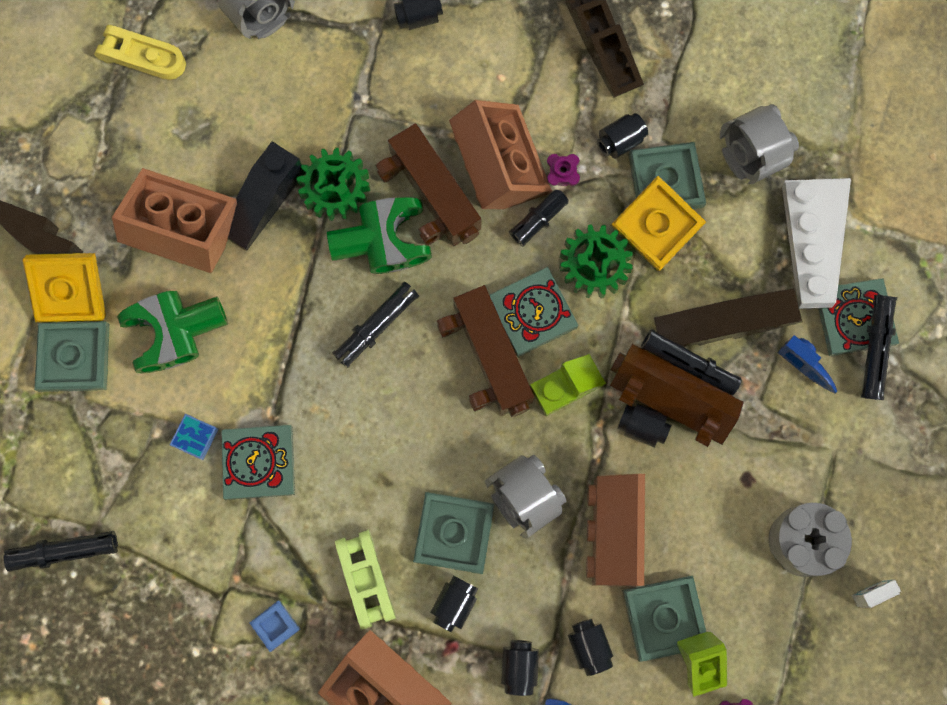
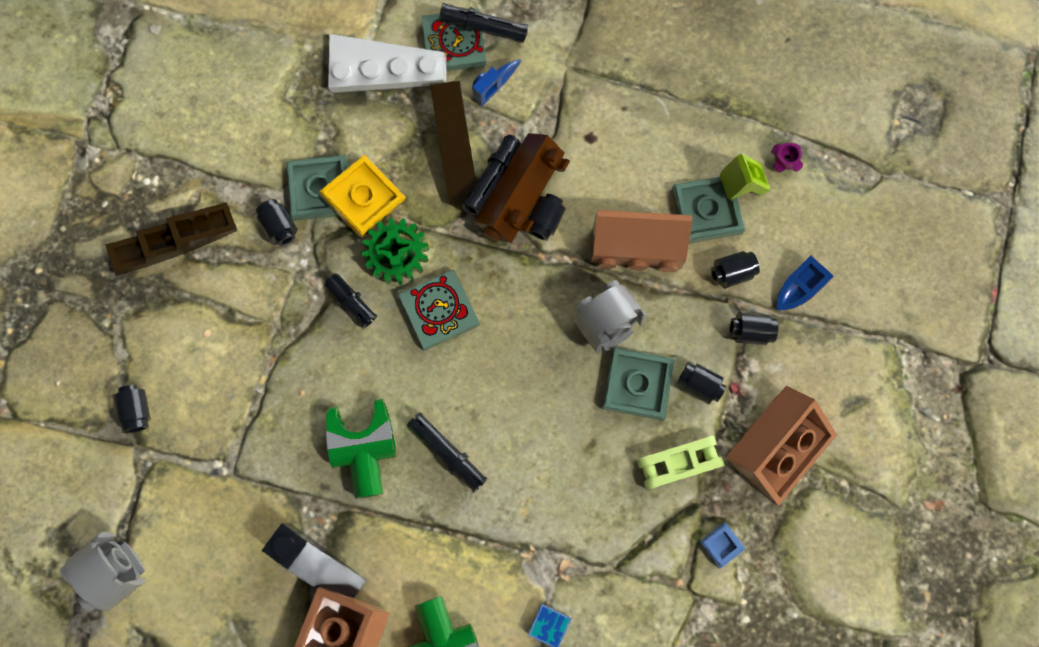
camera: 90 degrees left, 0 degrees up
(258, 462) = (574, 563): sand green tile -> none
(340, 171) = (295, 501): green gear -> none
(434, 185) = (314, 395): reddish brown brick -> none
(493, 352) = (476, 345): reddish brown brick -> none
(499, 154) = (286, 335): nougat slope -> none
(560, 178) = (311, 284): magenta plate -> none
(567, 384) = (507, 281): lime slope -> none
(758, 143) = (295, 104): light grey brick -> none
(830, 537) = (645, 89): light grey brick -> none
(876, 594) = (687, 43): white tile -> none

